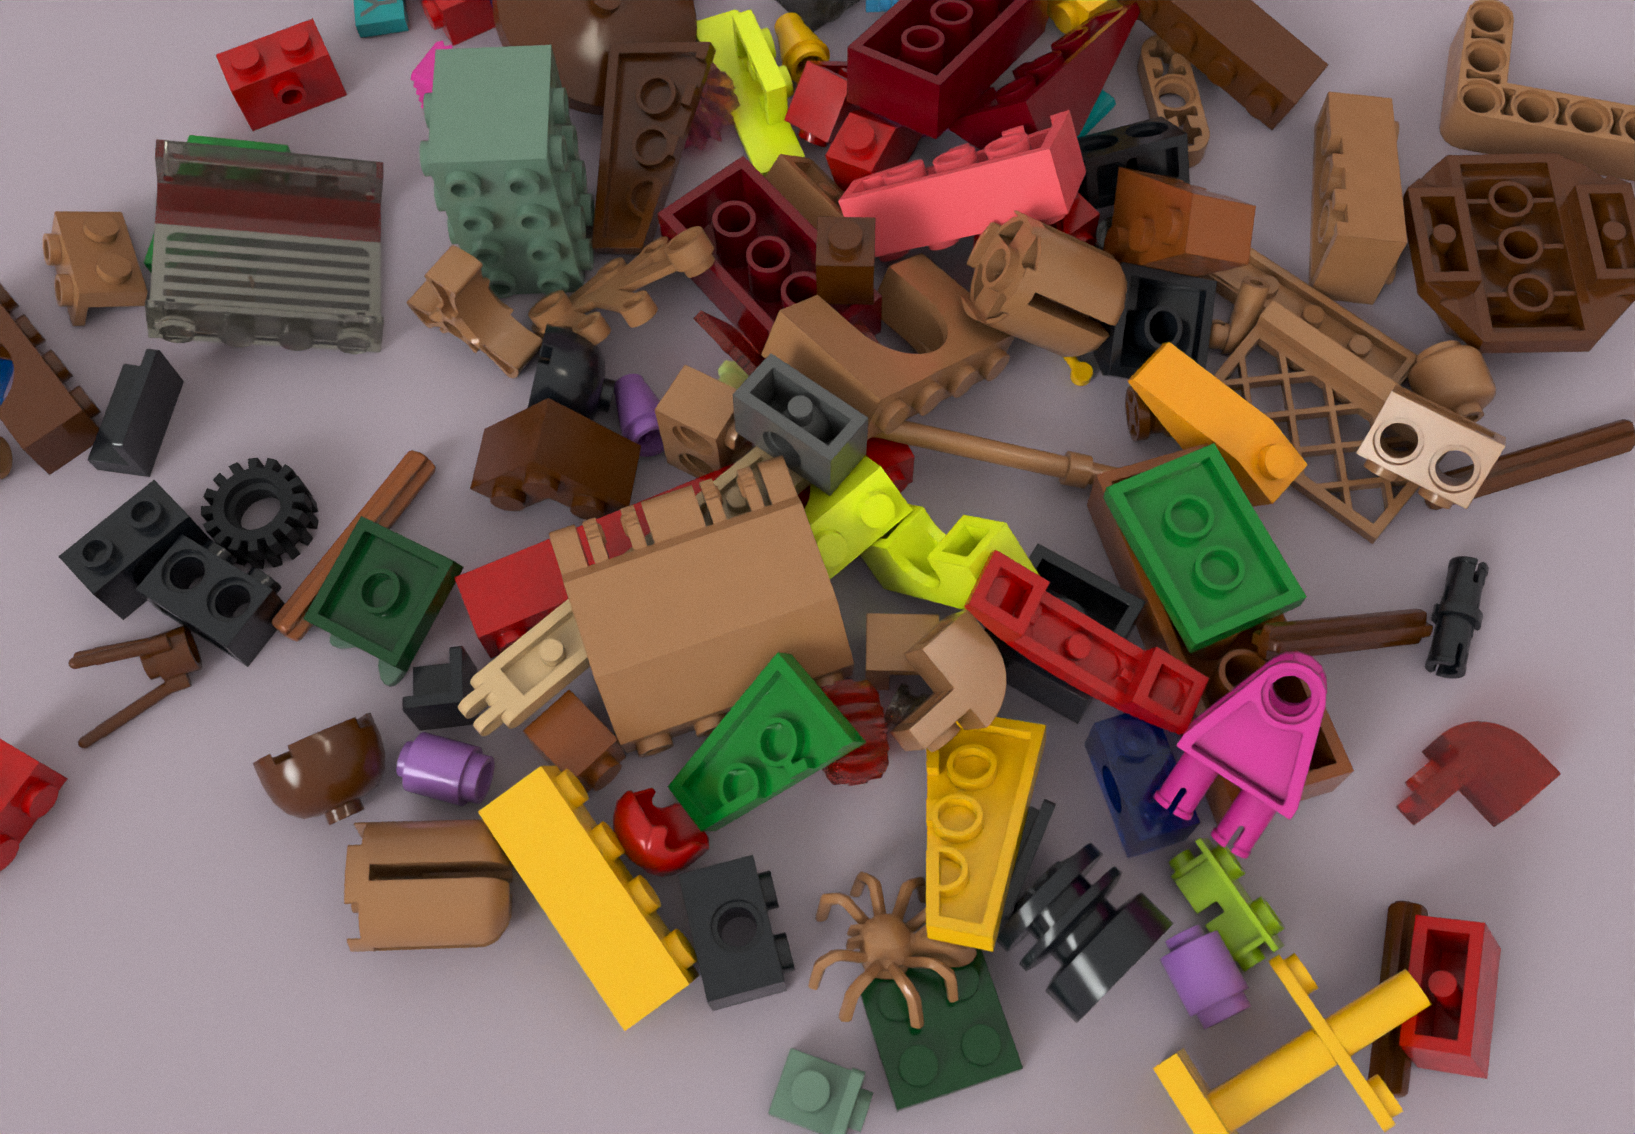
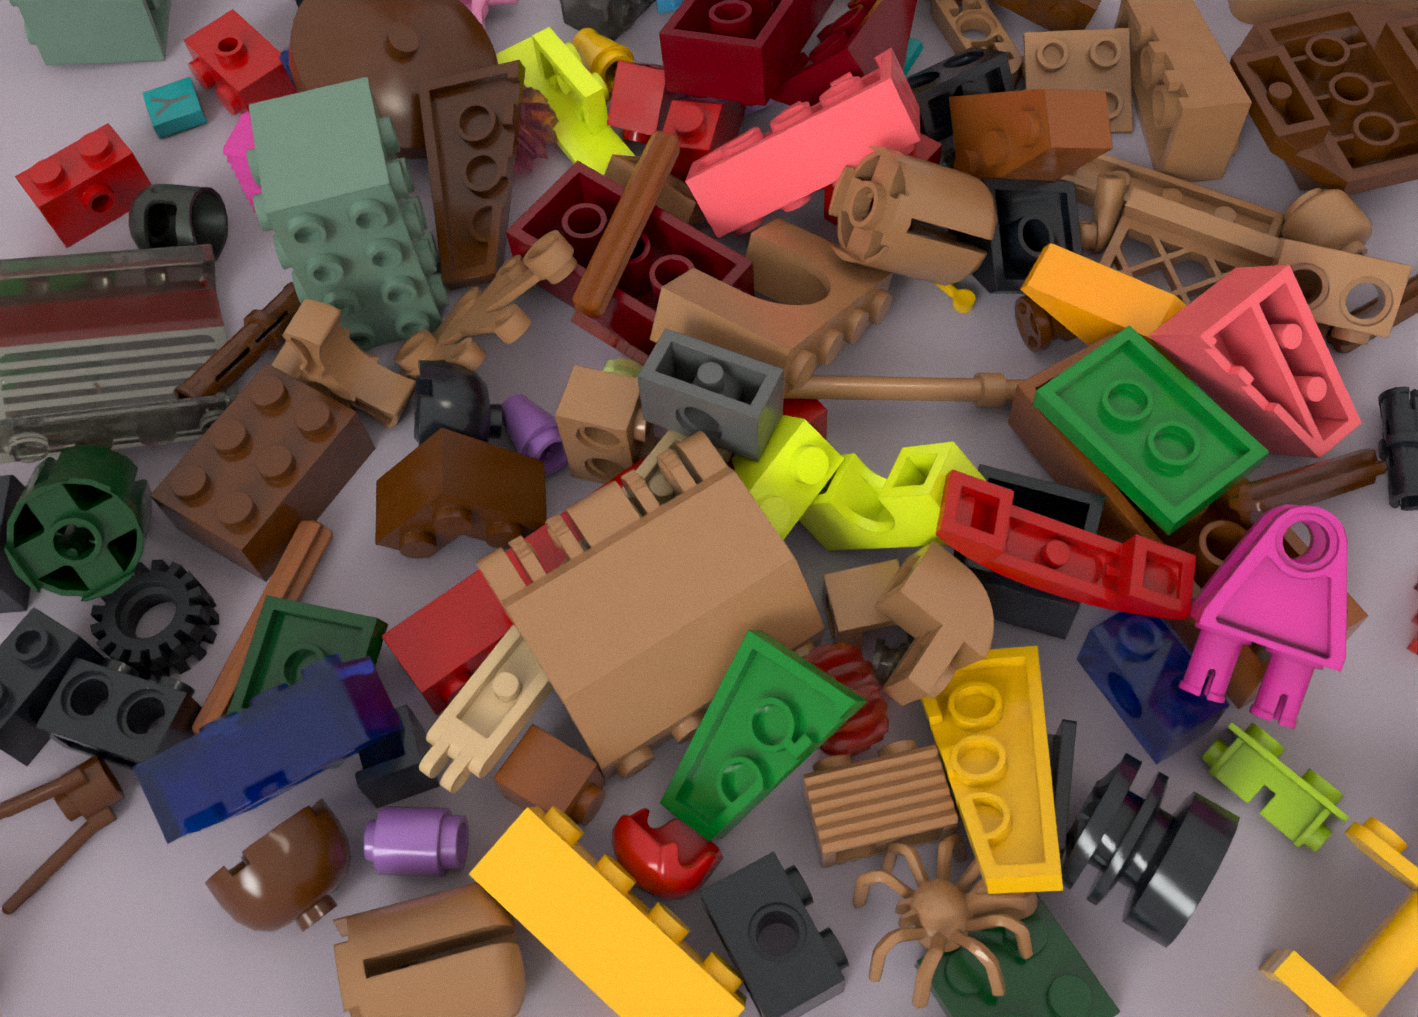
camera: 10 degrees left, 5 degrees down
(209, 411) = (80, 523): none -> dark green cylinder
(333, 656) = (268, 747): none -> clear blue wedge
(359, 129) = (178, 216): none -> pearl dark grey helmet
(375, 284) = (260, 333): none -> reddish brown pin
(386, 394) = (264, 470): none -> reddish brown brick
(771, 232) = (626, 225): none -> dark orange axle
(845, 260) = (712, 230): reddish brown brick -> none
(860, 832) = (878, 801): none -> medium nougat brick
(1205, 976) = (1280, 866): medium lavender brick -> none
(1264, 167) = (1083, 62): none -> medium nougat hinge
(1335, 504) = (1263, 361): none -> coral wedge

